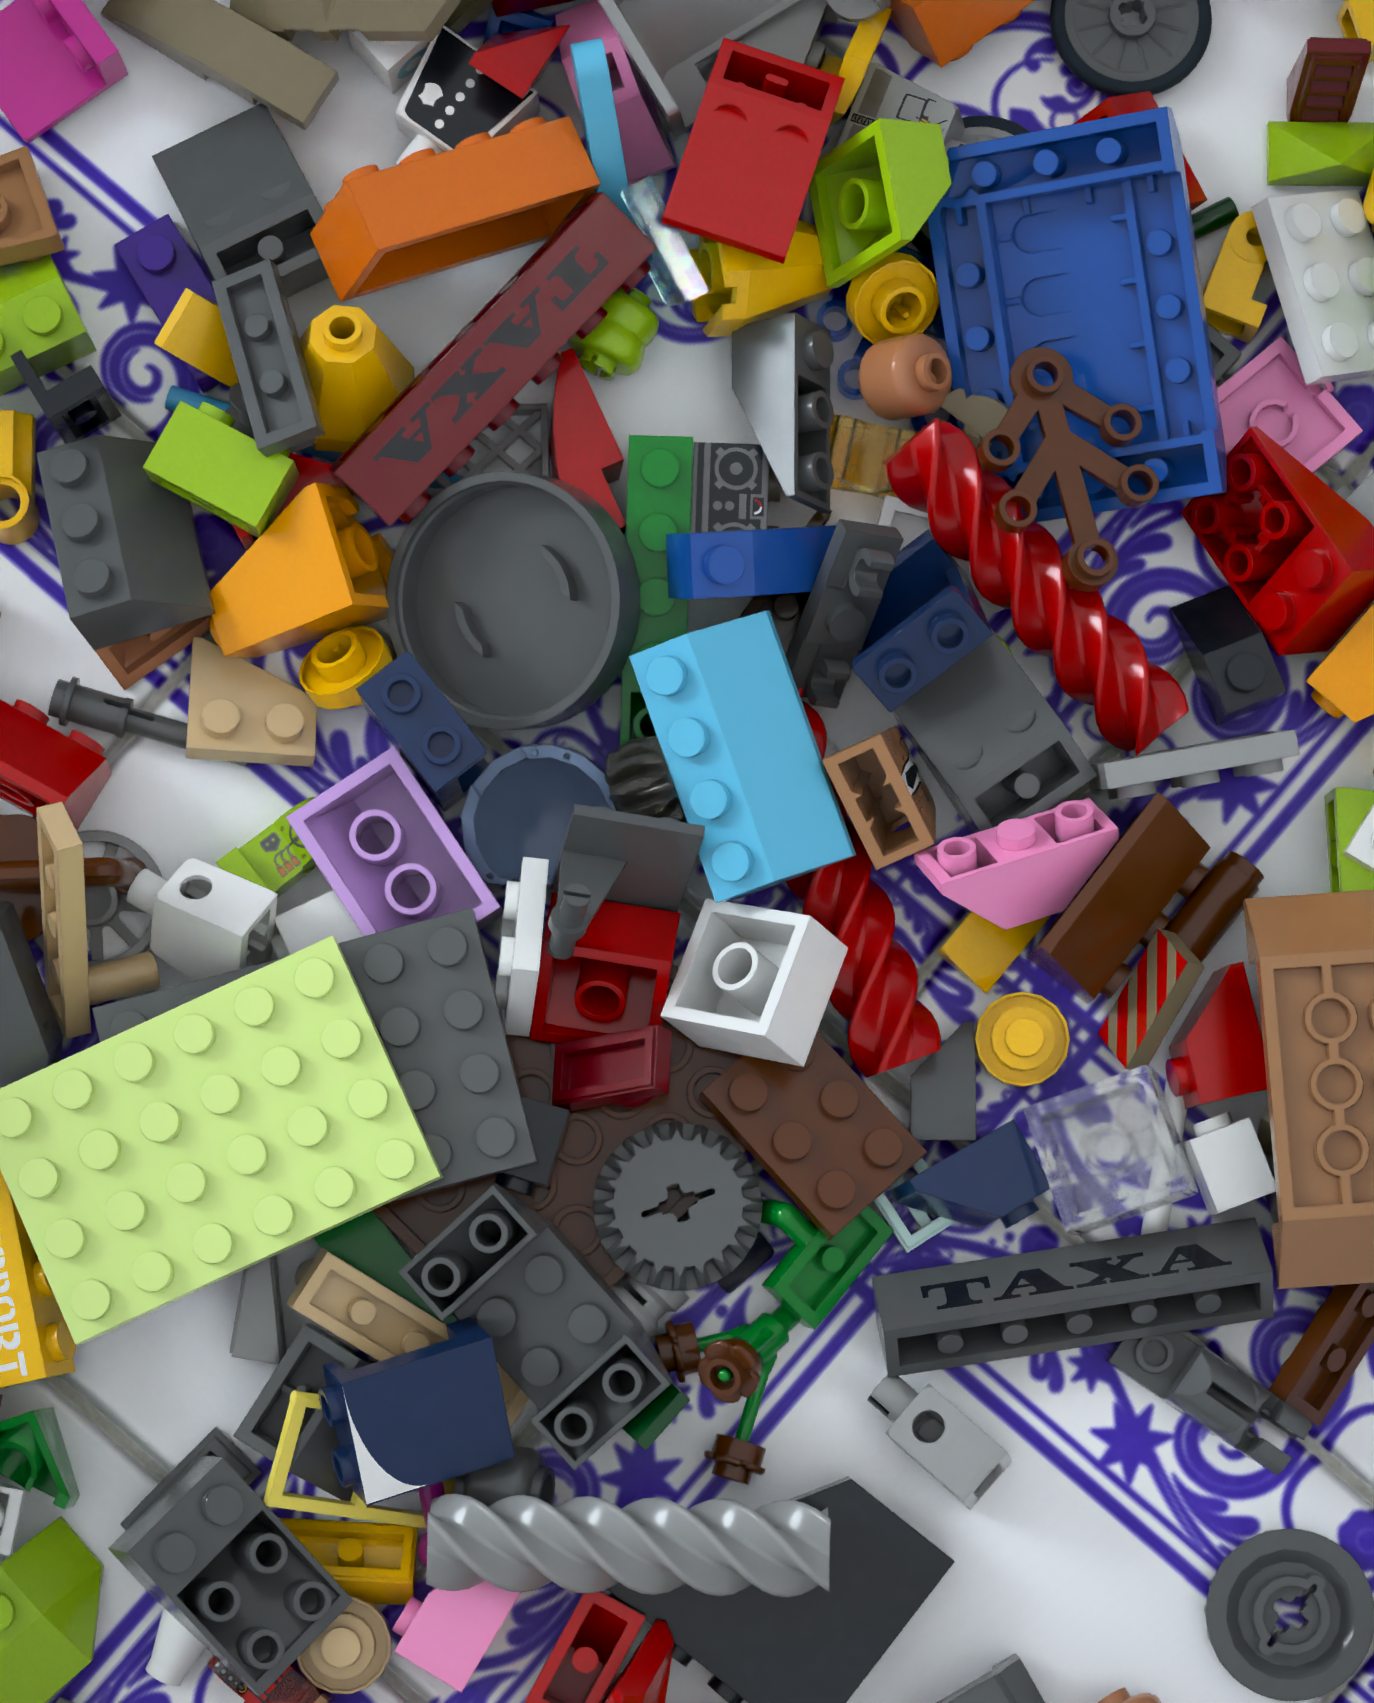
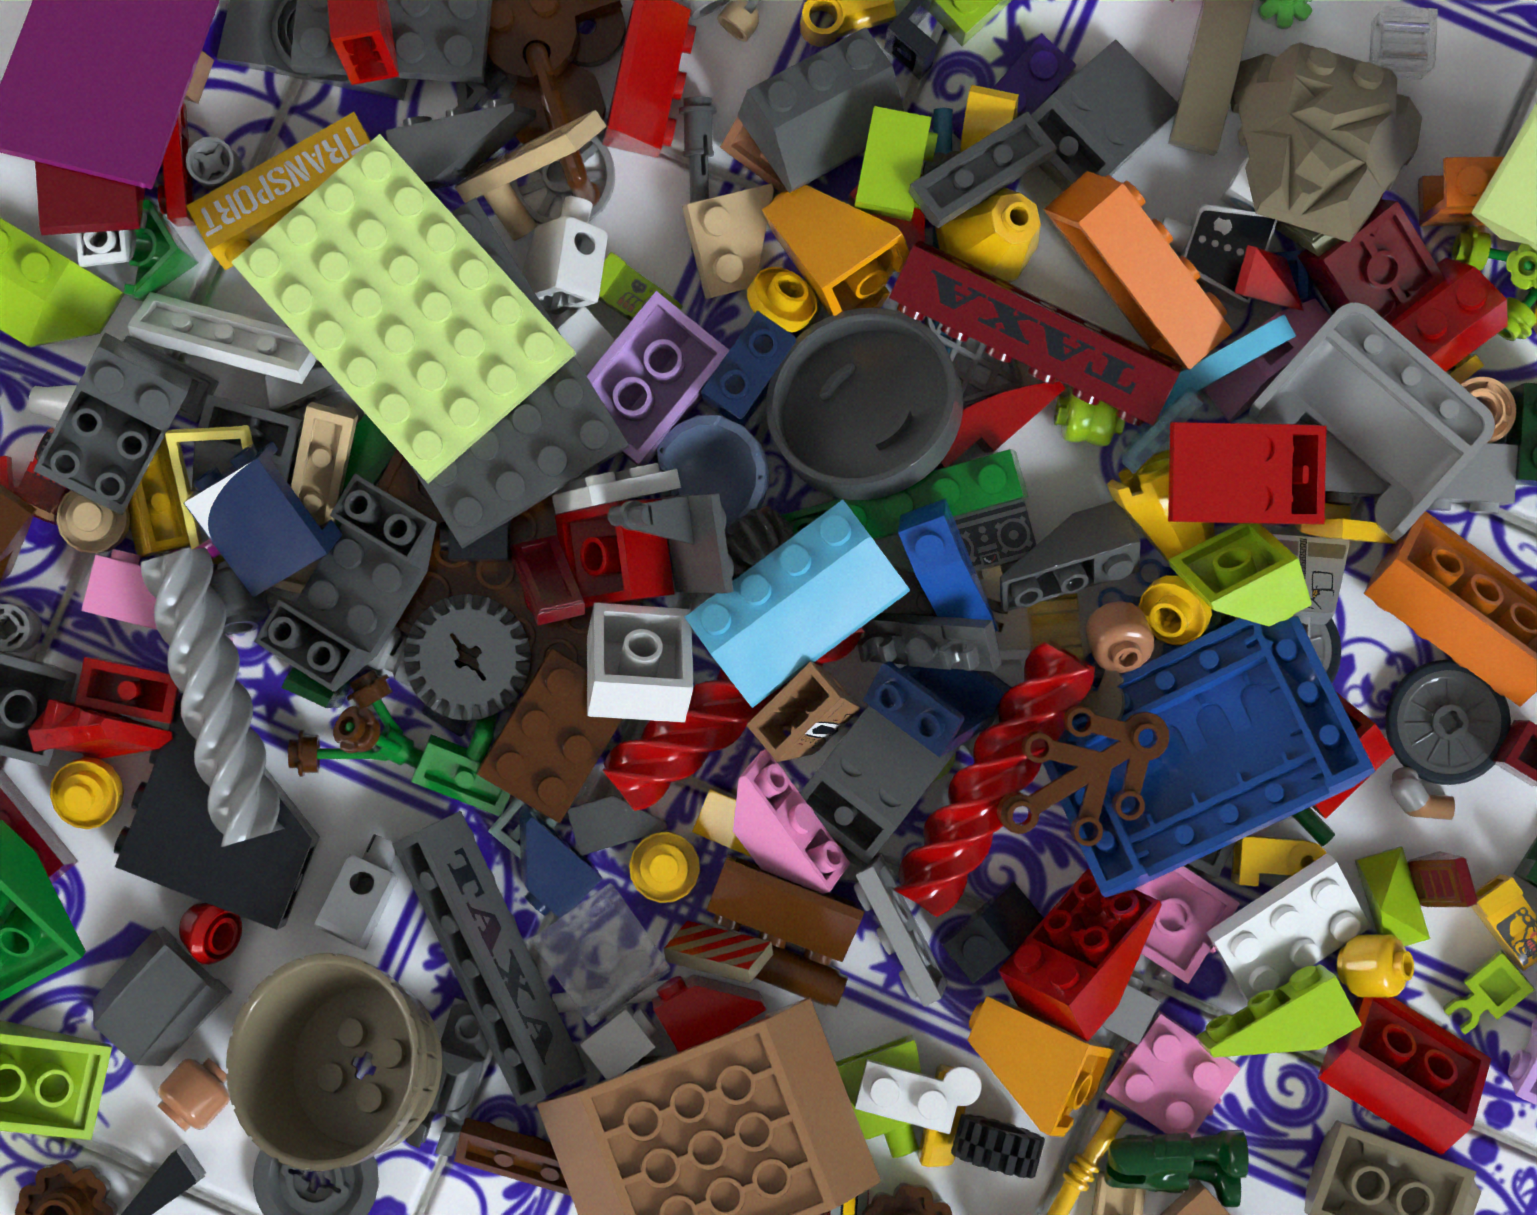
camera: 80 degrees right, 5 degrees up
(163, 1397) = (221, 337): none -> white plate
(930, 1654) = (210, 932): none -> red cone
(1138, 1587) = (296, 1058): none -> dark tan piece
(1216, 86) = (1415, 799): none -> light grey arm

